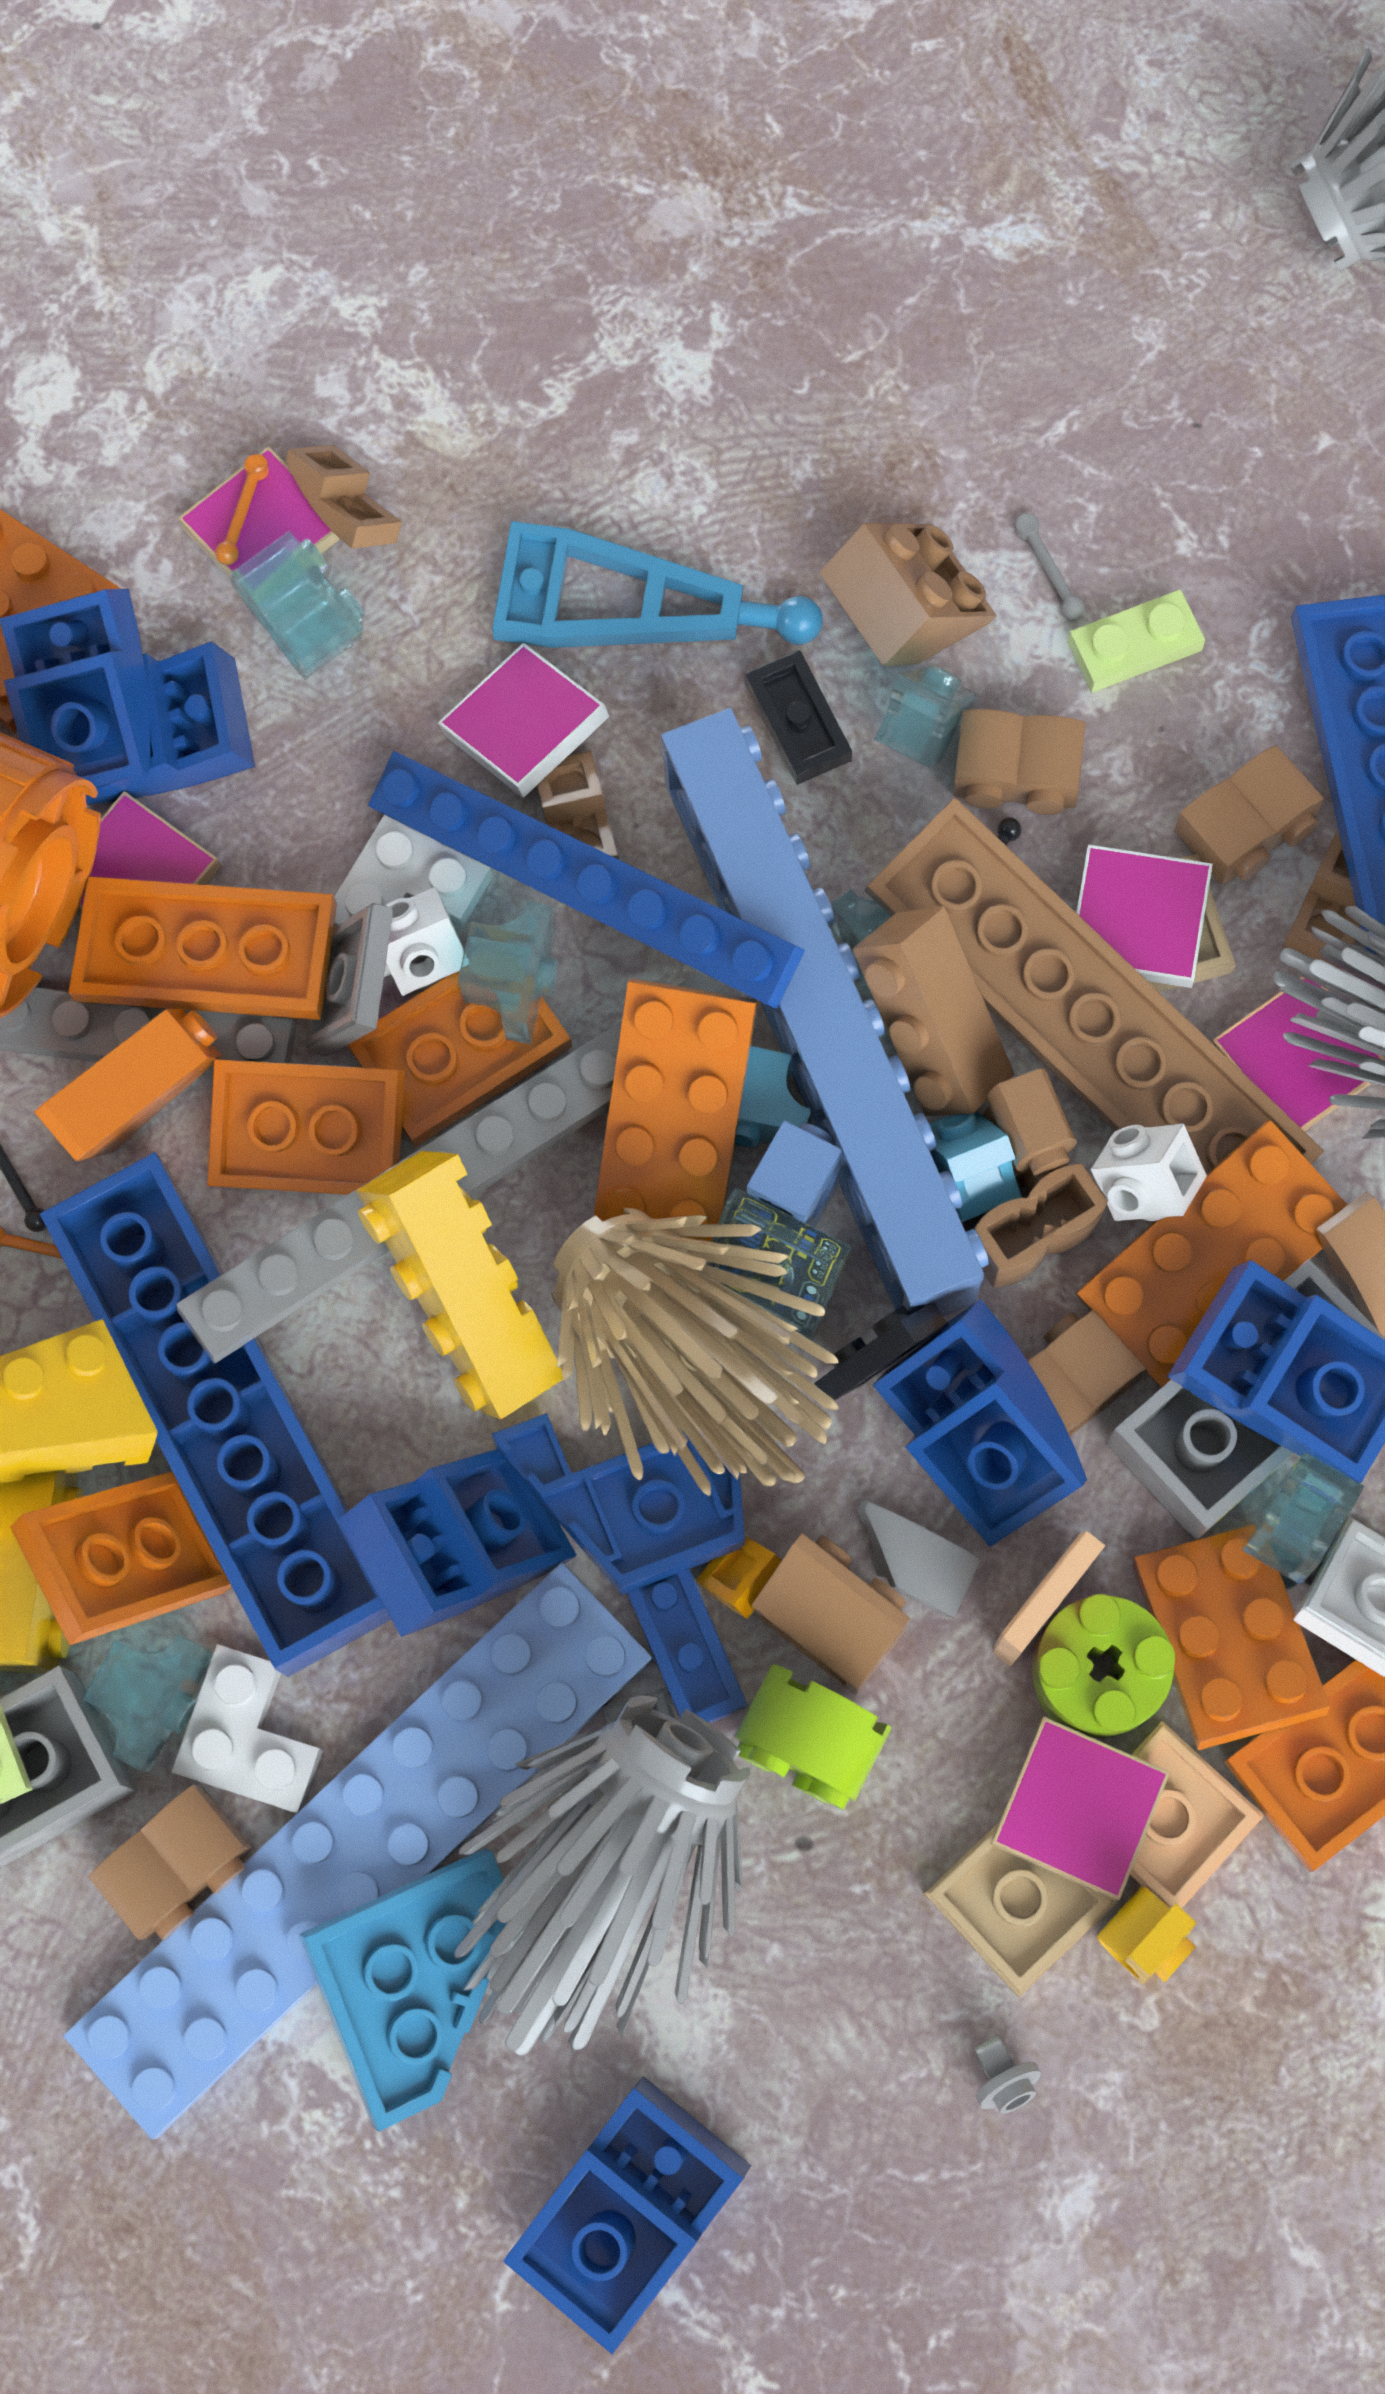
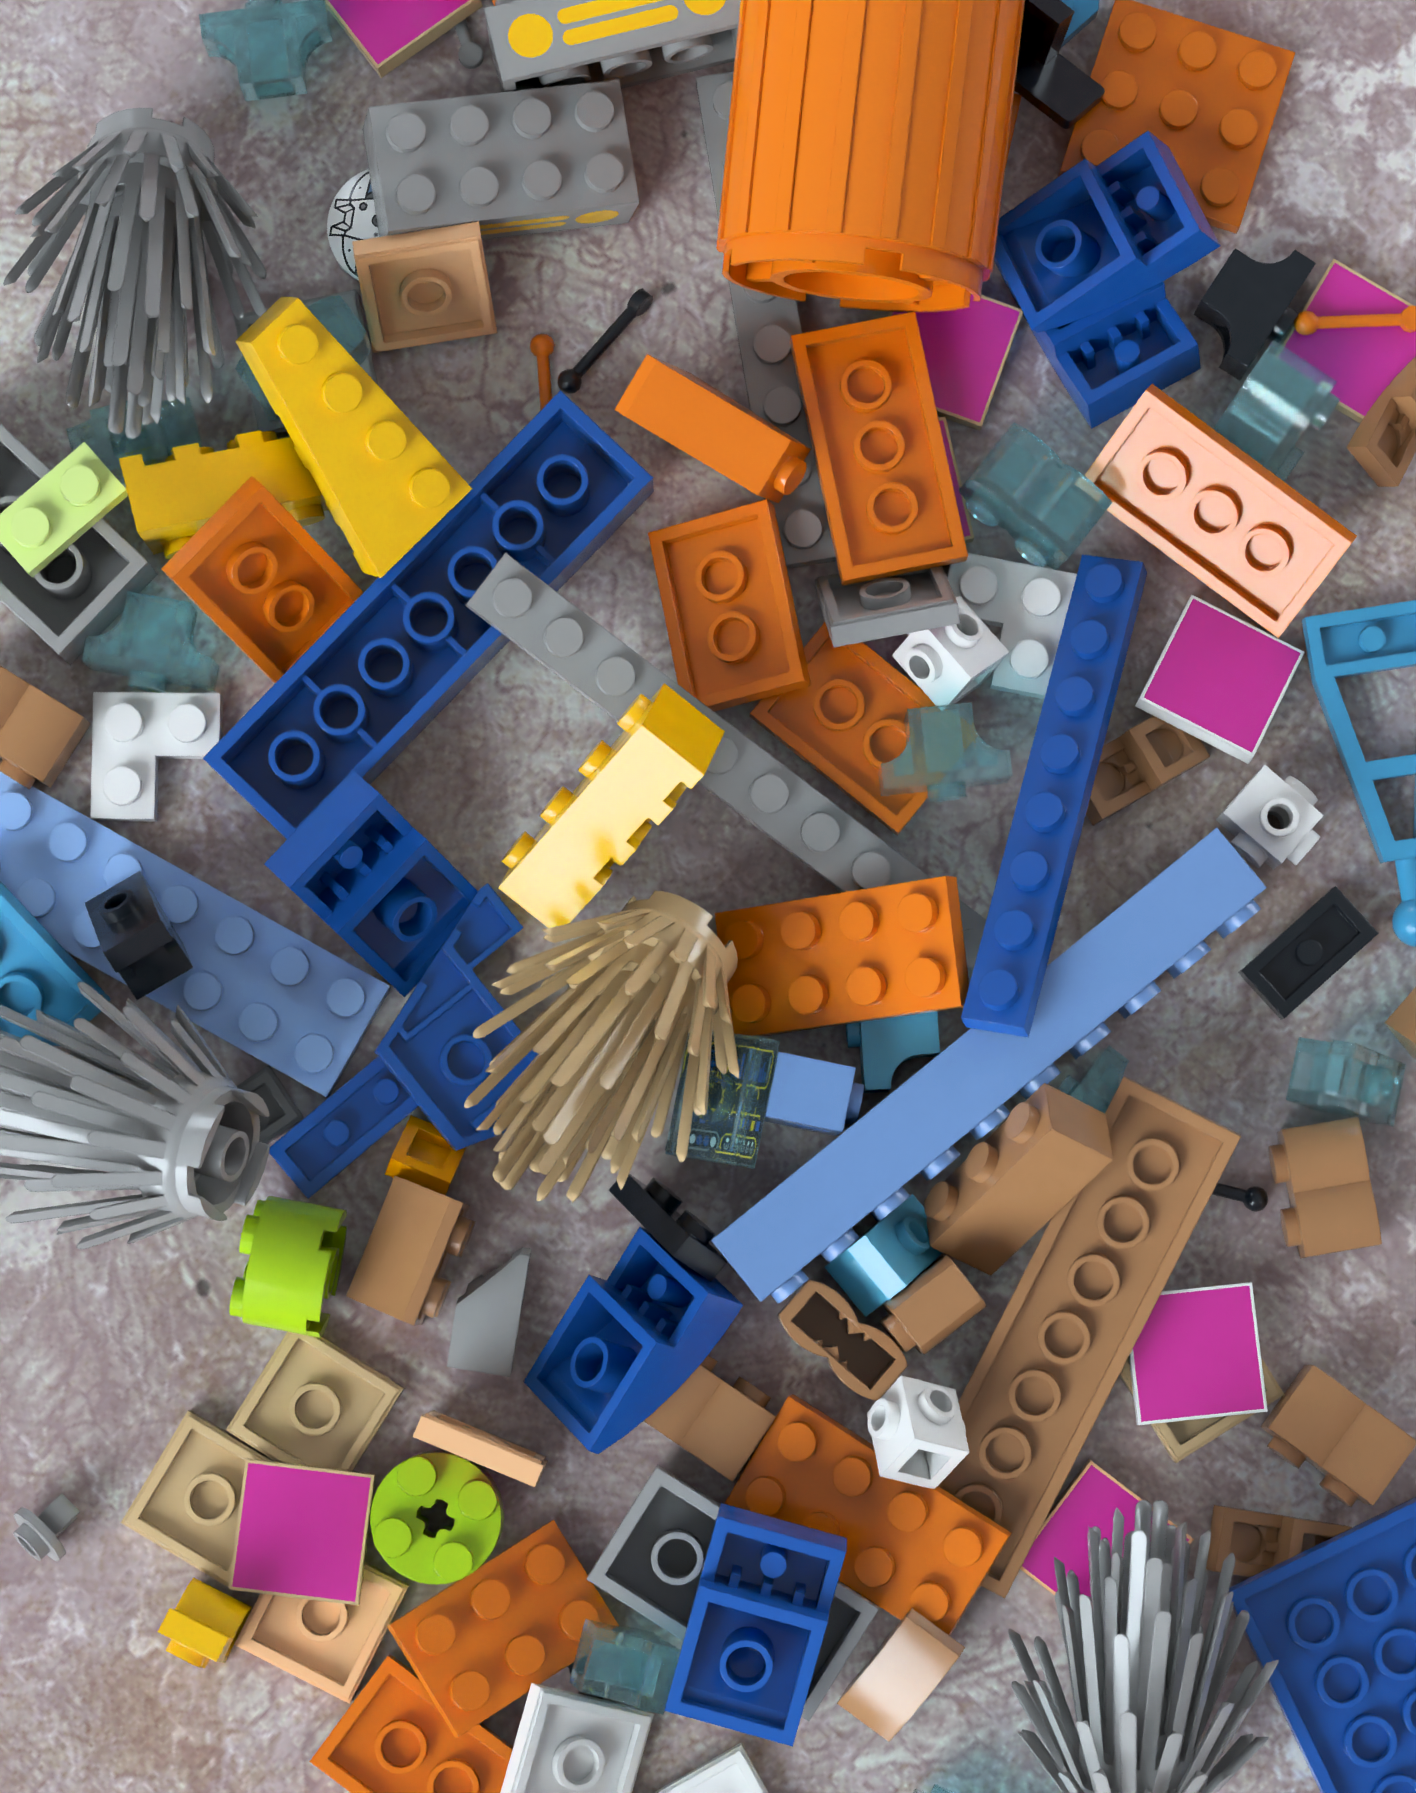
camera: 65 degrees right, 10 degrees up
(194, 596) = (1252, 305): none -> black brick
(299, 827) = (1034, 498): none -> clear light blue brick
(368, 674) = (1217, 511): none -> plate
(430, 1789) = (137, 936): none -> black brick
(662, 700) = (1284, 799): none -> white brick
(954, 1763) = (315, 1405): none -> tan tile

